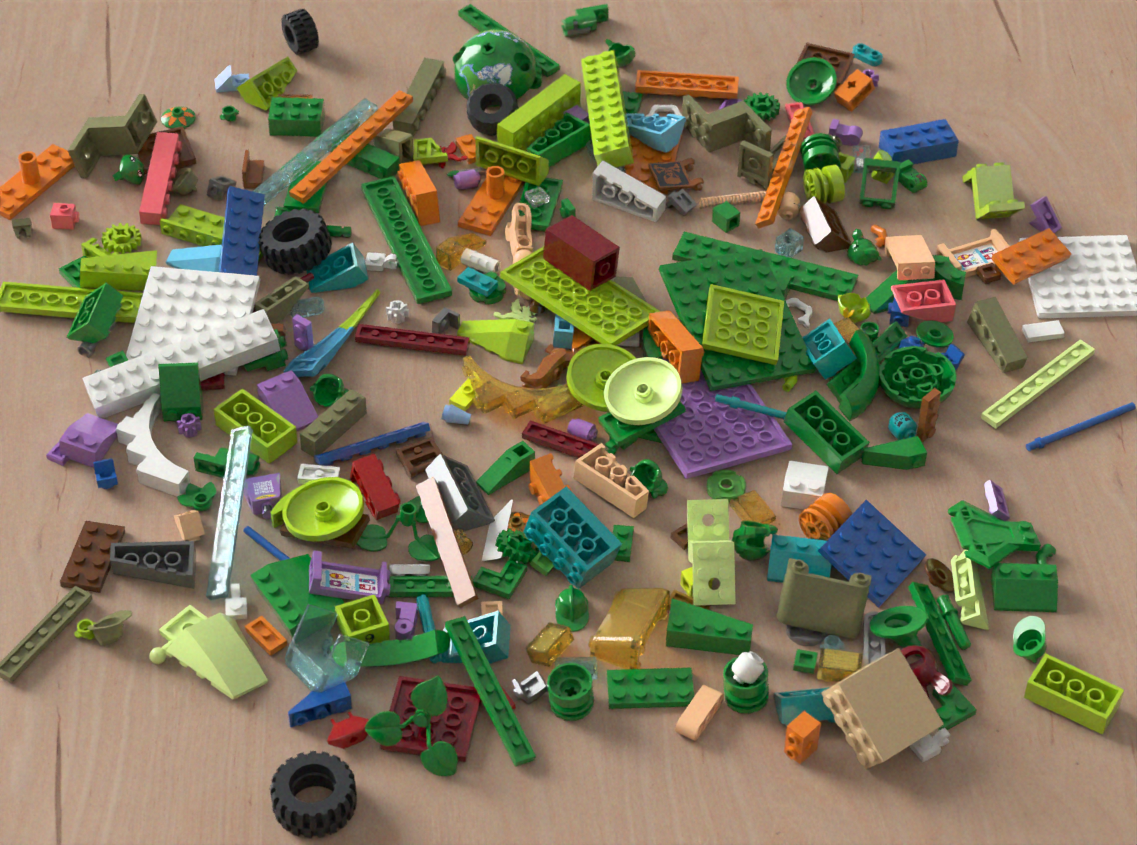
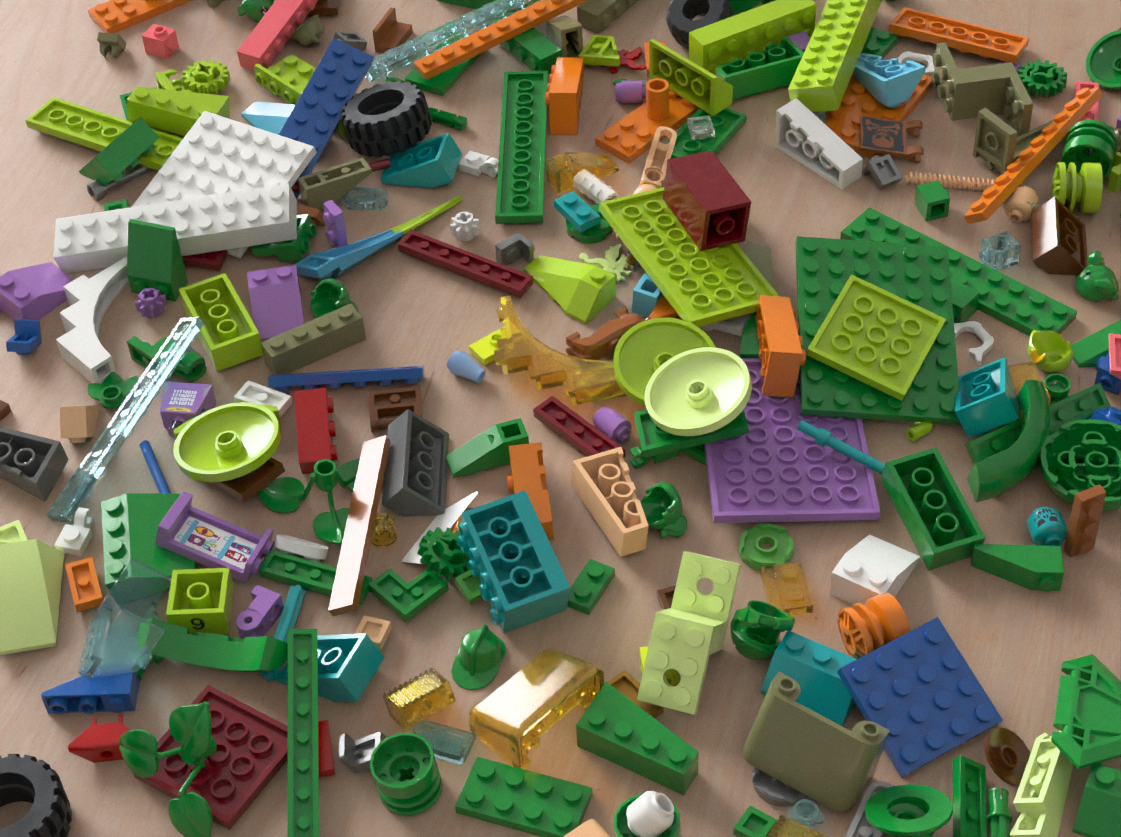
camera: 25 degrees right, 0 degrees up
(567, 208) = (733, 152): green plate -> none

